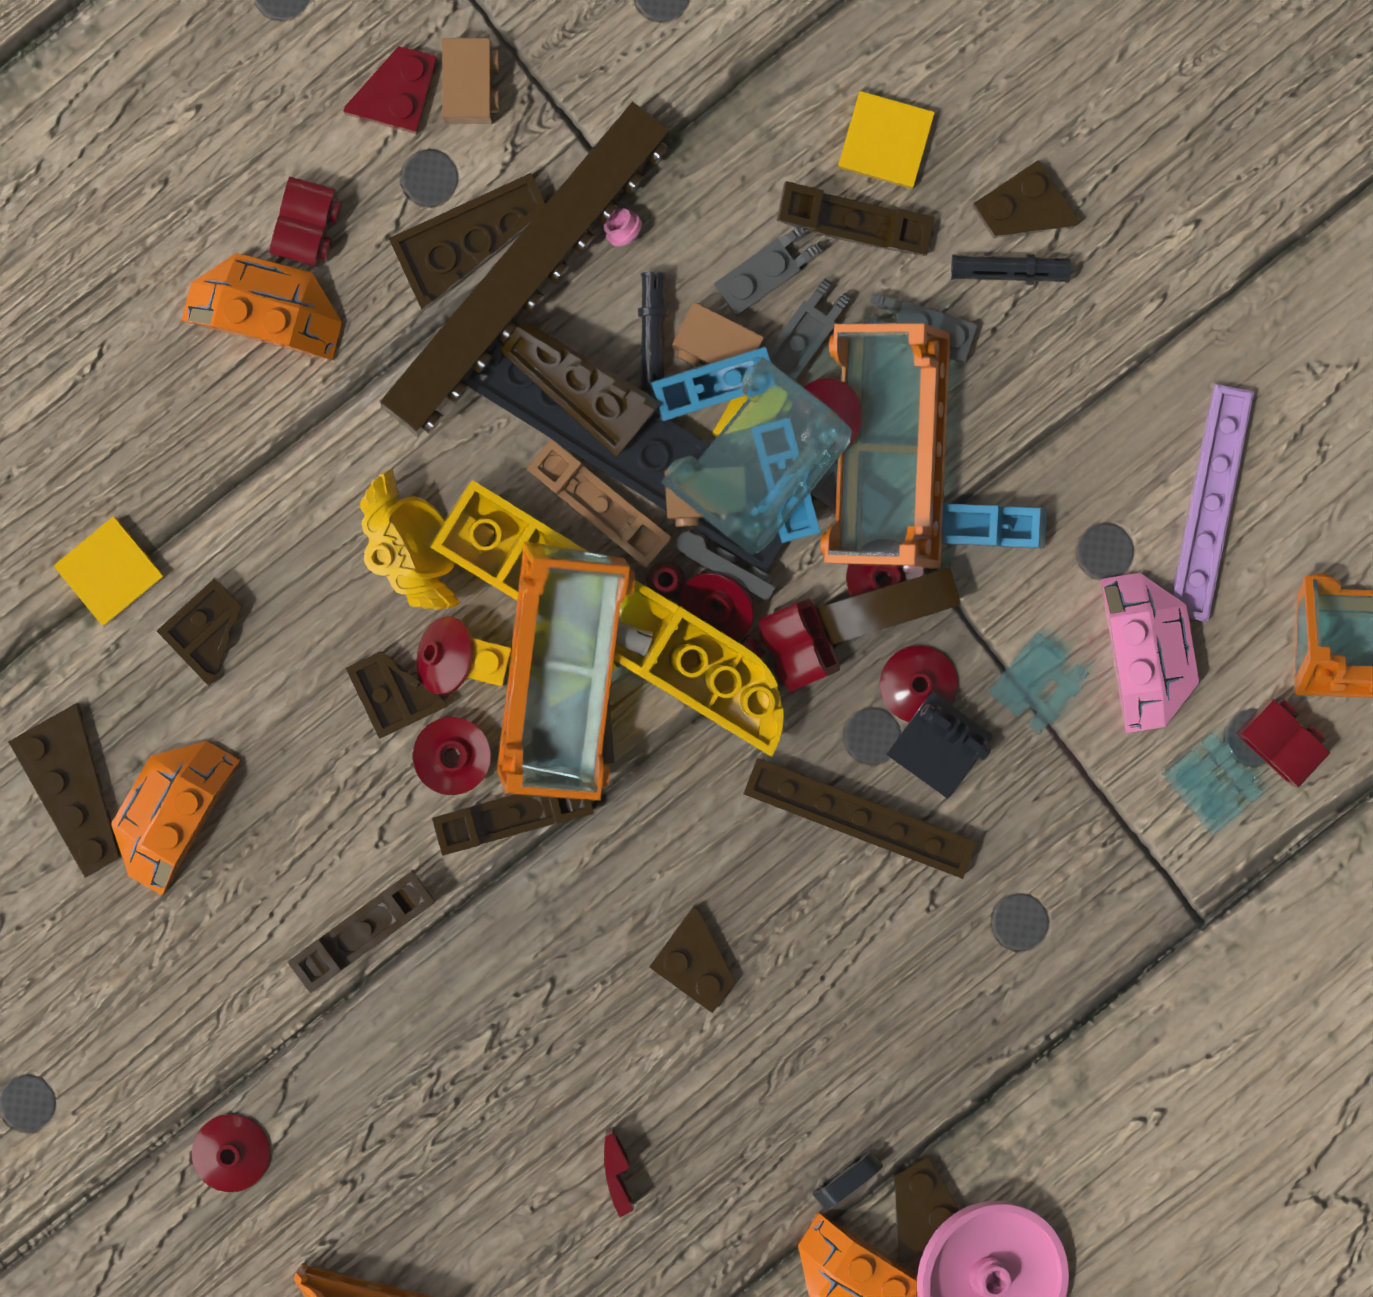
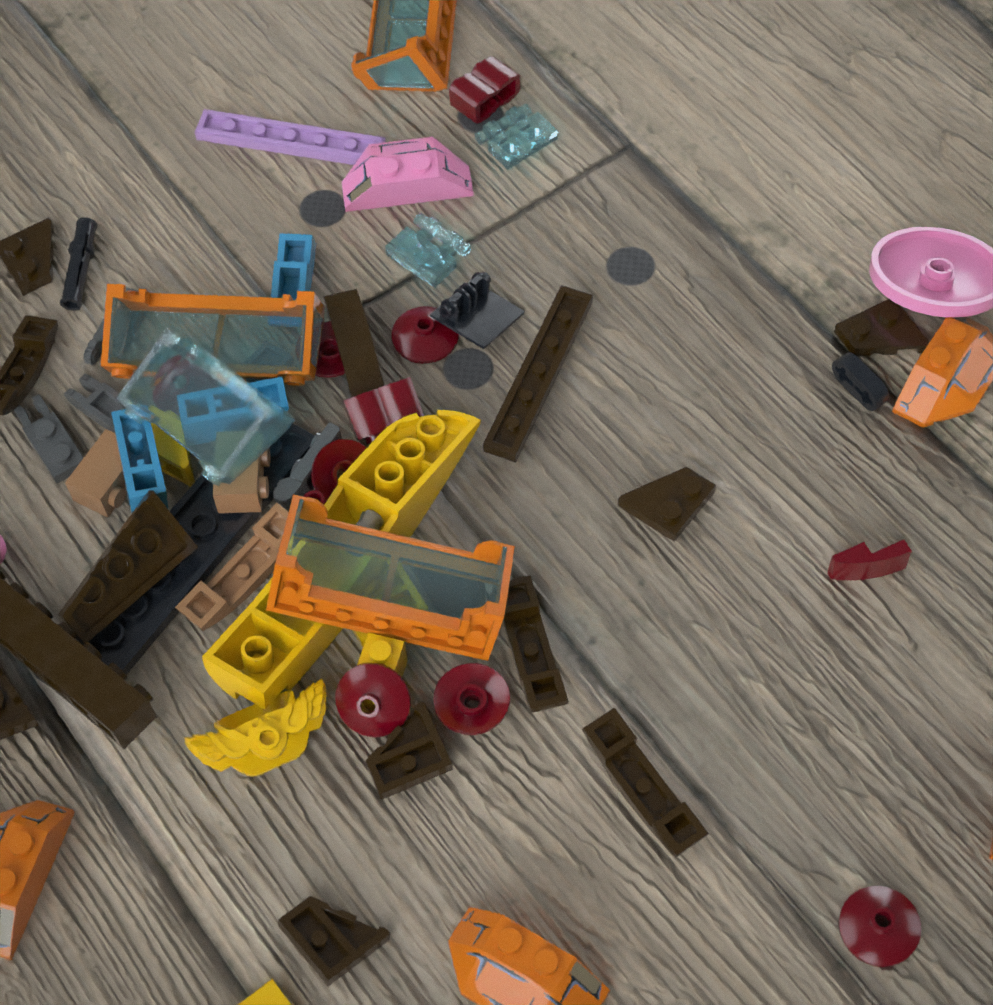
camera: 85 degrees left, 30 degrees down
(653, 327) = (74, 525): black pin -> none

